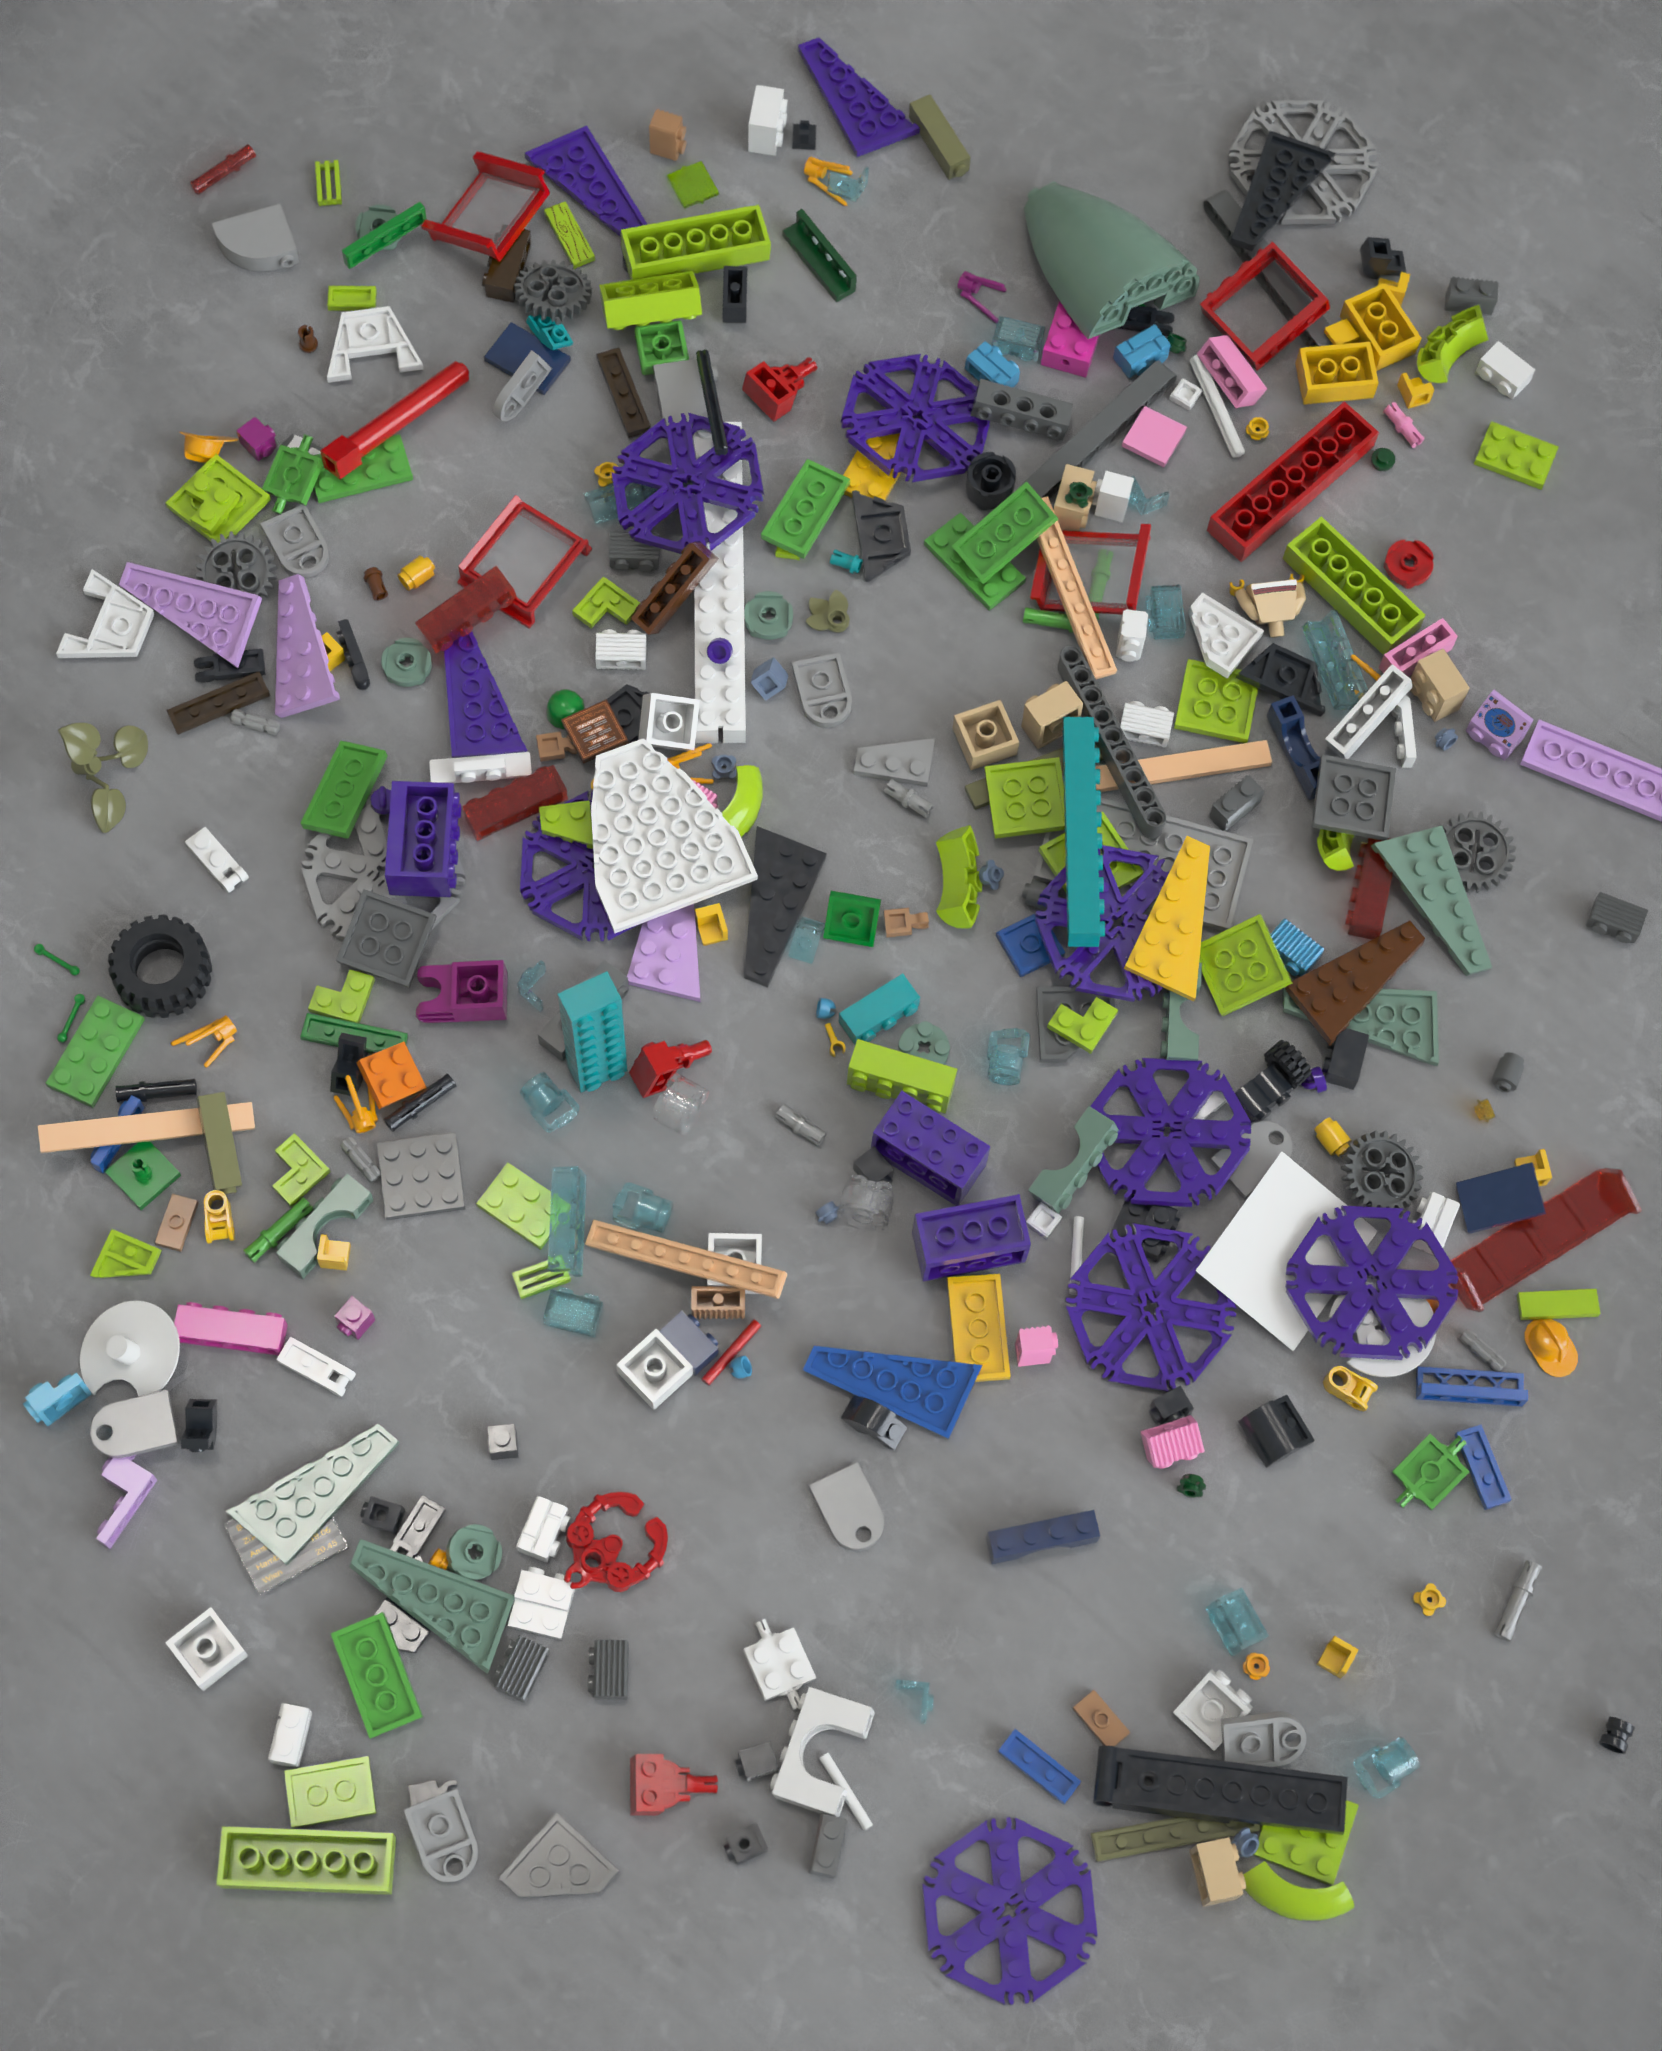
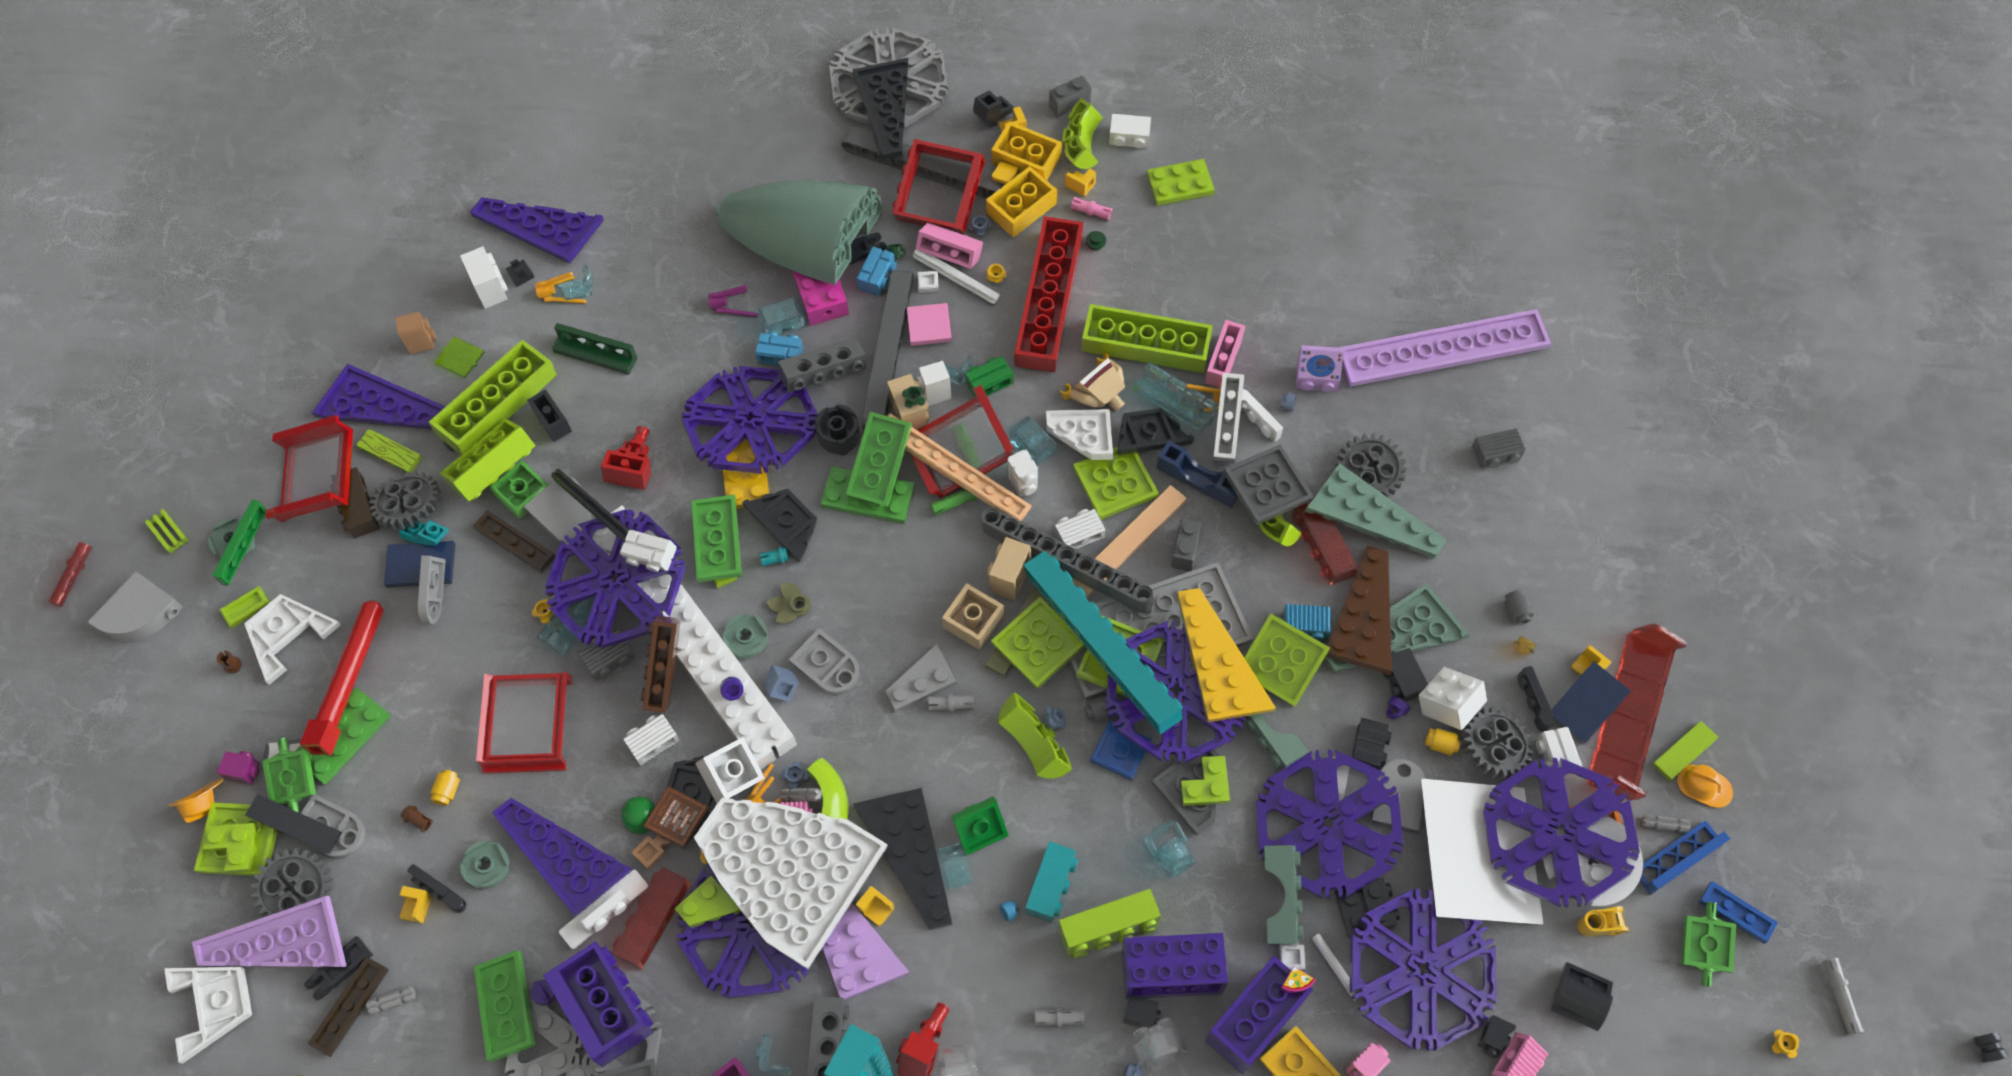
camera: 30 degrees left, 5 degrees down
(271, 518) = (293, 824): none -> black tile
(301, 659) = (394, 920): lavender wing -> none
(466, 609) = (506, 791): clear red brick -> none
(605, 598) = (610, 706): lime plate -> none
(715, 785) = (801, 794): none -> light grey axle
(732, 477) = (648, 550): none -> white brick
(833, 1040) = (1034, 931): yellow hand -> none
(899, 922) = (1016, 801): medium nougat plate -> none
(925, 1034) = (1098, 875): sand green plate -> none
(939, 137) = (621, 213): olive brick -> none
(1021, 1227) = (1297, 981): none -> tile
(1173, 525) = (991, 376): none -> green brick
(1282, 365) = (979, 220): none -> sand blue plate
(1288, 1062) = (1372, 708): black tyre -> none
(1371, 1104) = (1452, 698): none -> white brick
(1404, 574) = (1169, 308): red plate -> none
(1438, 685) = (1259, 366): tan brick -> none
(1452, 1164) = (1536, 698): none -> black hinge

